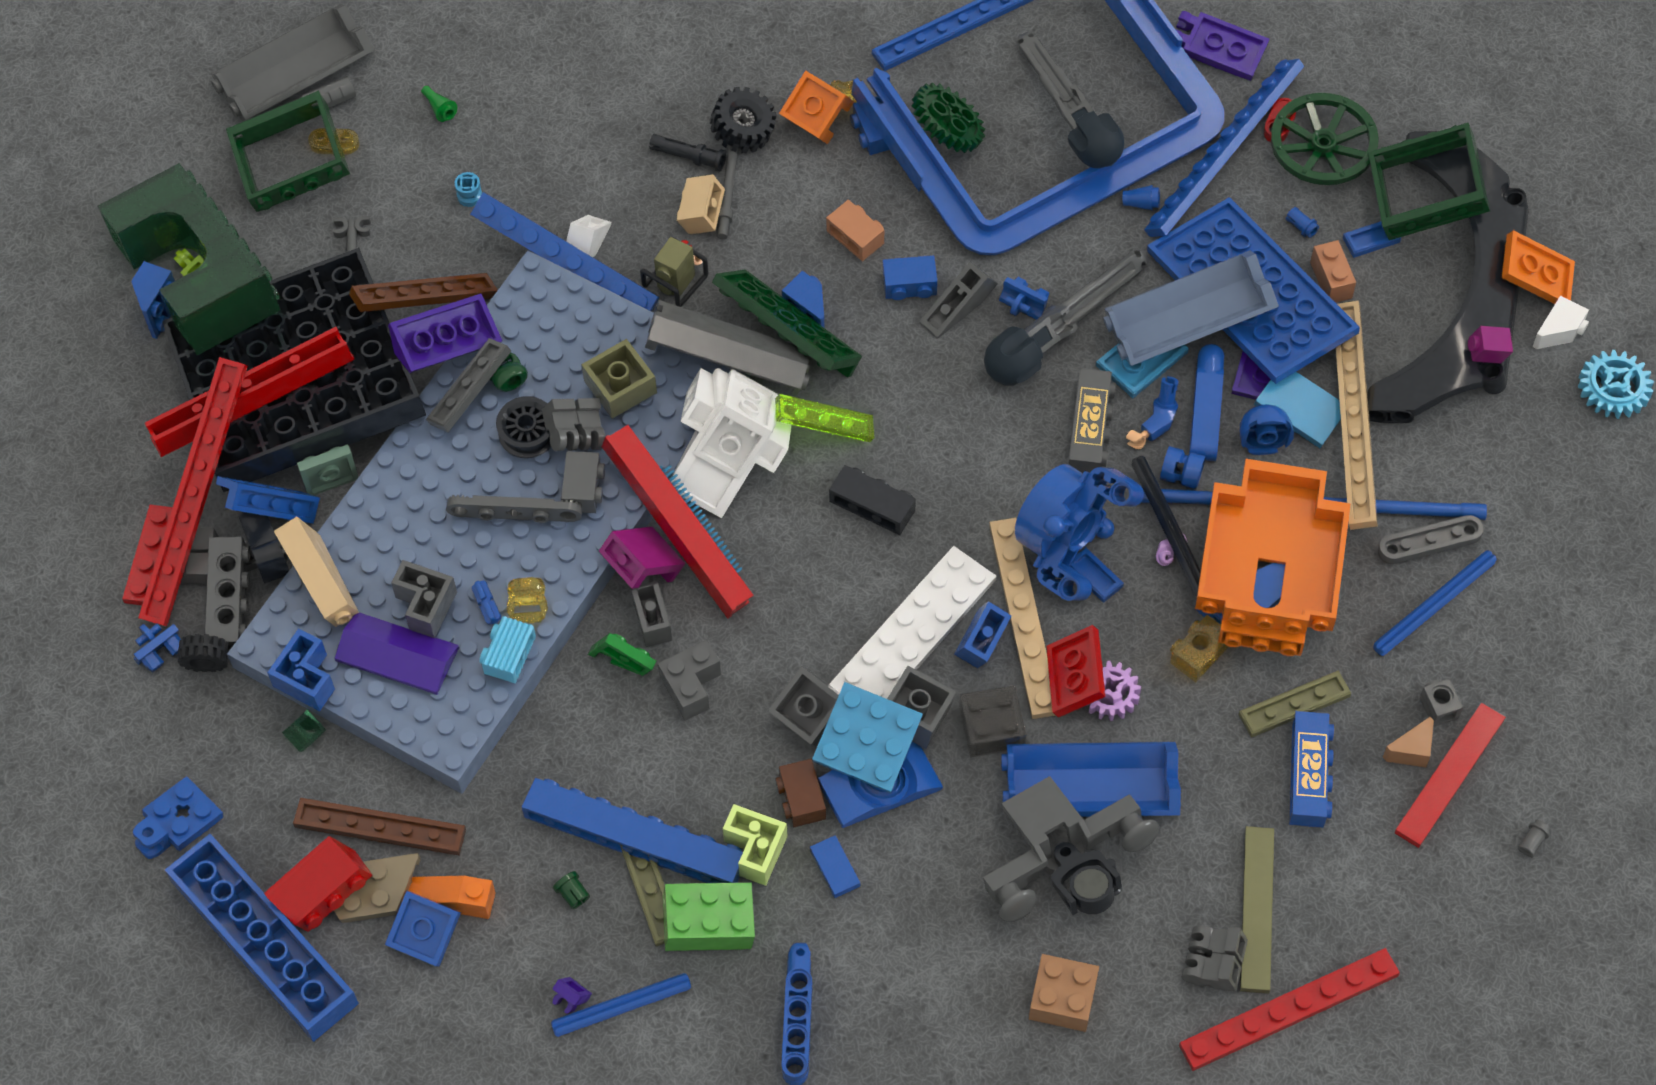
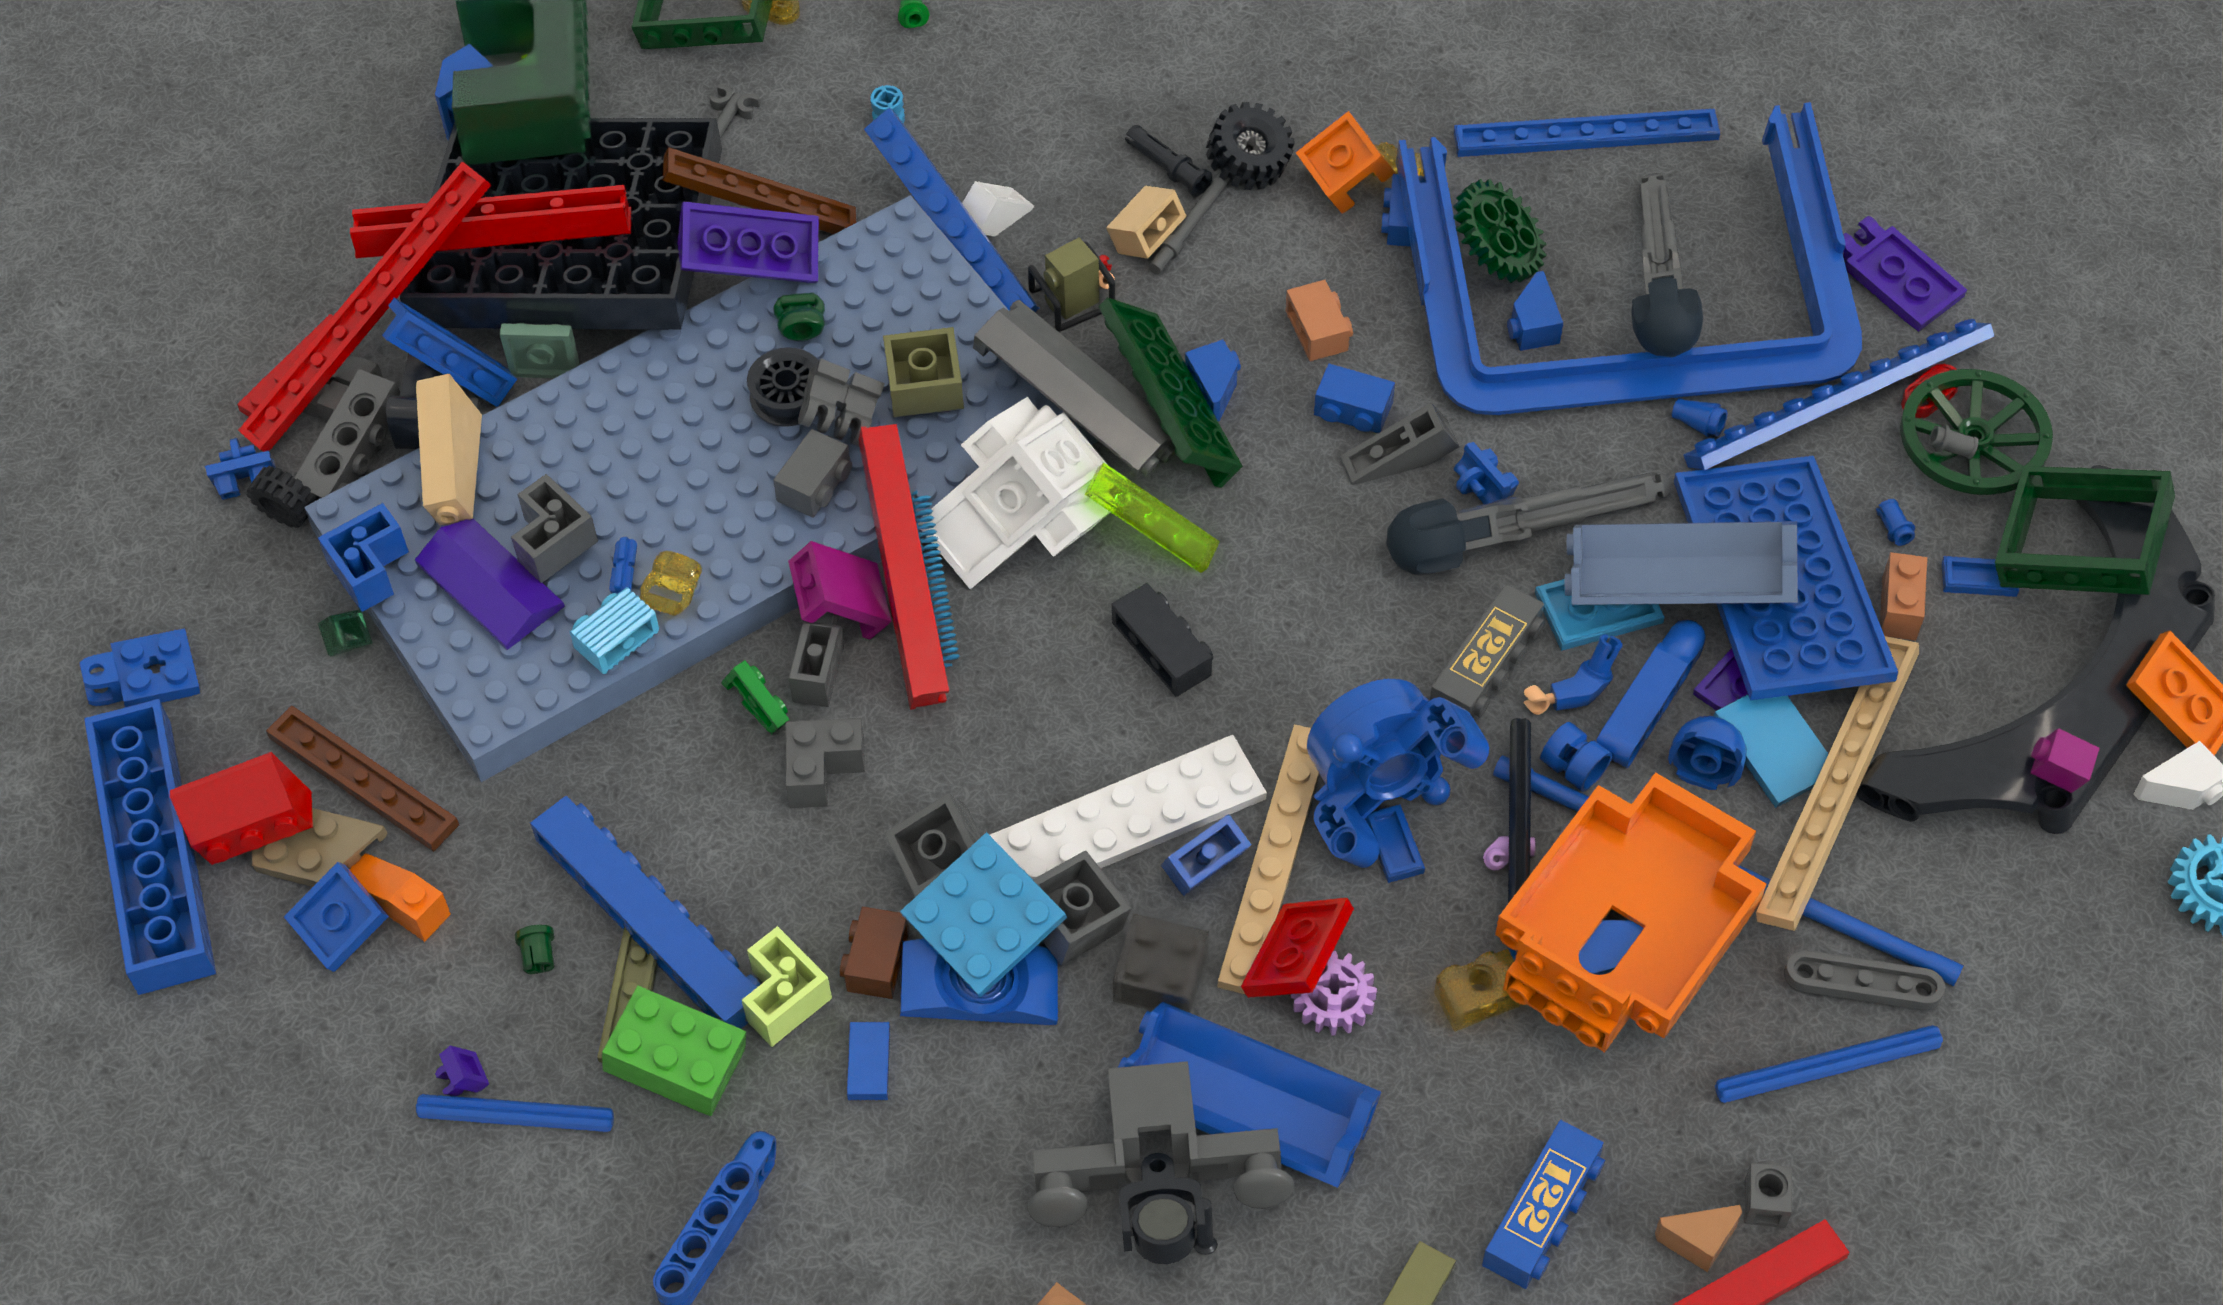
camera: 25 degrees right, 5 degrees down
(468, 385) = (747, 313): dark grey tile -> none
(517, 508) = (718, 472): dark grey piece -> none
(1000, 169) = (1535, 316): none -> blue slope
(1304, 698) = (1586, 1111): olive tile -> none
(1310, 153) = (1948, 440): none -> dark grey pin

